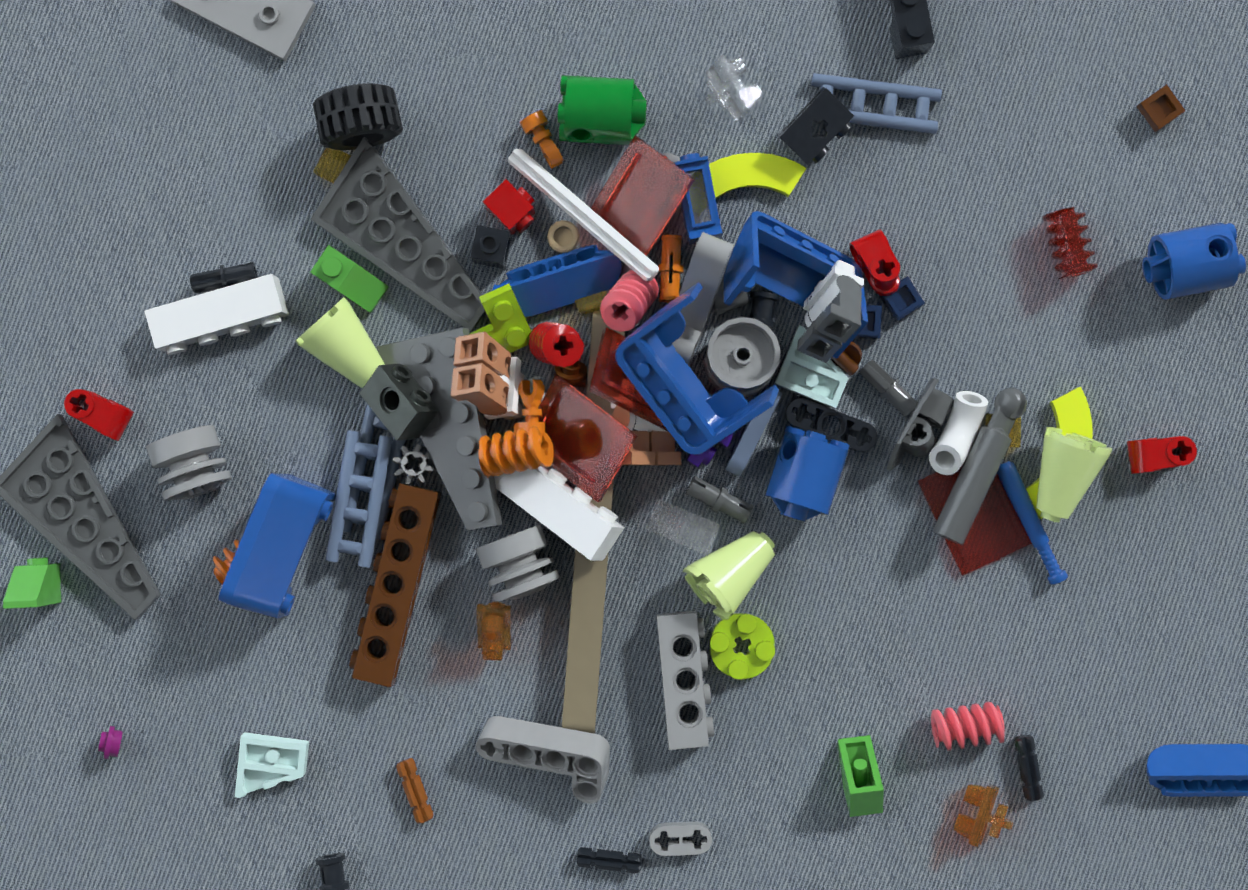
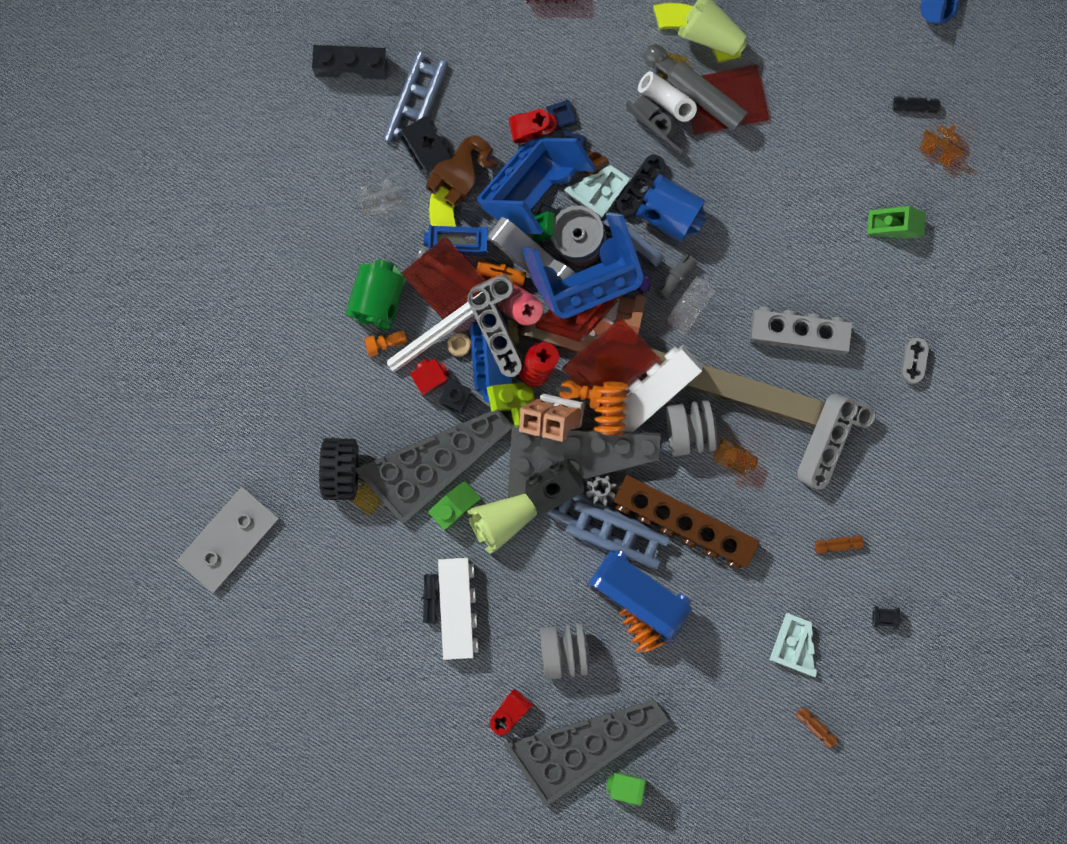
camera: 75 degrees left, 5 degrees down
(110, 742) = (755, 759): magenta plate -> none
(171, 812) = (816, 727): none -> dark orange axle
(574, 374) = (564, 358): reddish brown plate -> none
(587, 280) = (500, 327): none -> light grey beam
(609, 860) = (919, 415): black axle -> none
(730, 572) = (731, 280): yellowish green cone -> none
(739, 664) = (791, 273): lime plate -> none
(742, 308) = (546, 221): none -> green tile
(789, 180) = (458, 173): none -> reddish brown hips
(832, 312) = (561, 163): dark grey hips -> none
(888, 387) = (623, 138): dark grey axle -> none
(967, 724) = (876, 138): coral piece -> none
(1028, 516) = (735, 63): blue piece -> none

